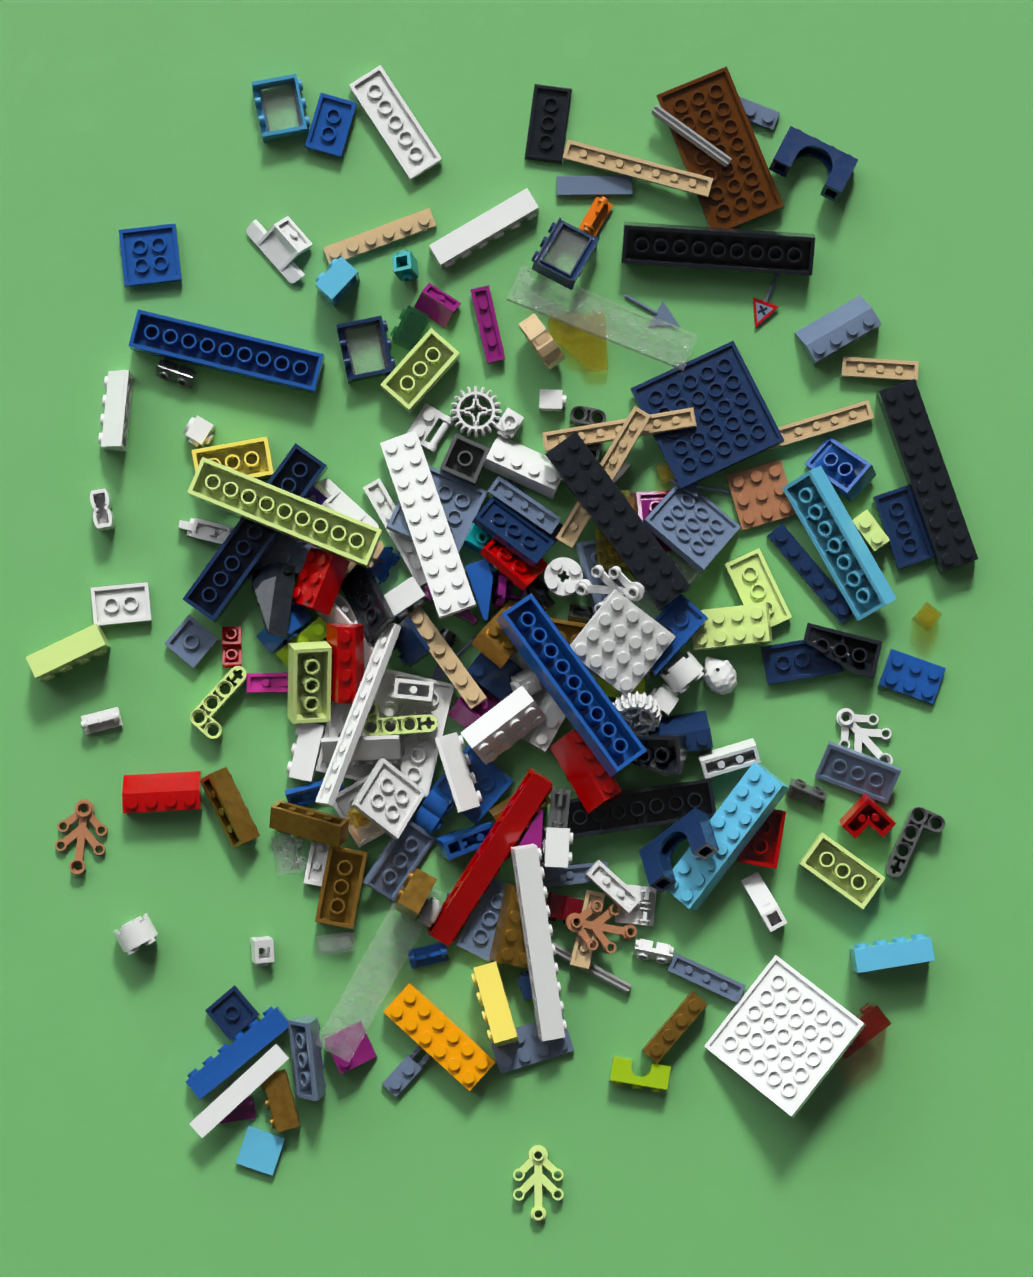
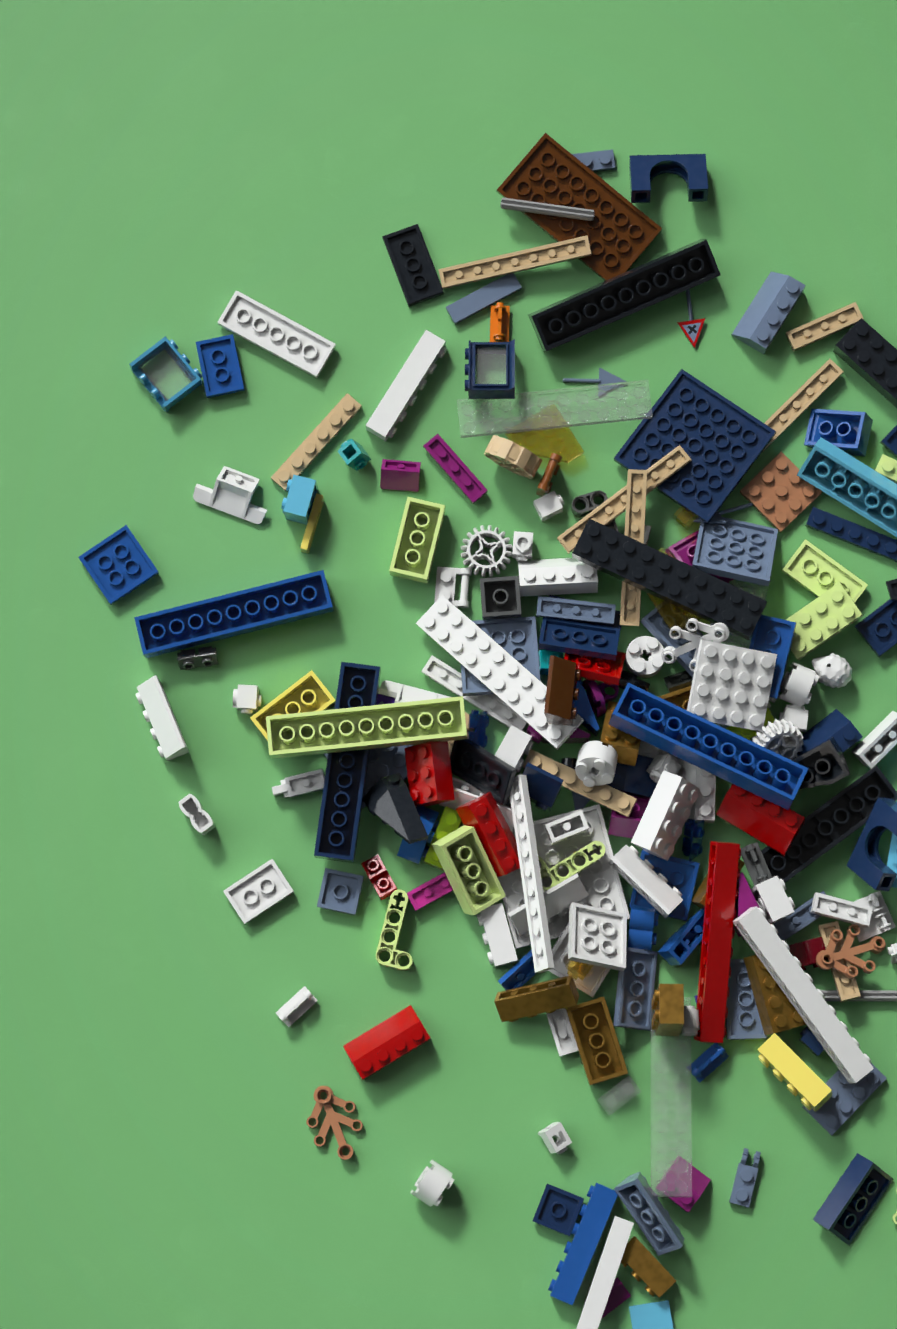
camera: 20 degrees left, 5 degrees down
(68, 652) = (234, 960): yellowish green brick -> none
(229, 807) = (456, 1023): pearl gold brick -> none
(289, 854) = (532, 1038): clear bracket -> none
(337, 307) = (312, 523): none -> light yellow tile
(365, 349) = (357, 547): window -> none
(410, 328) = (387, 507): clear green brick -> none
(439, 1036) = (759, 1130): light orange brick -> none
(467, 649) = (596, 764): none -> white brick
(468, 571) = (562, 691): none -> reddish brown slope
(488, 1137) = (853, 1199): none -> slope
(516, 762) = (693, 846): none -> hinge
(570, 370) = (551, 469): none -> dark orange plate

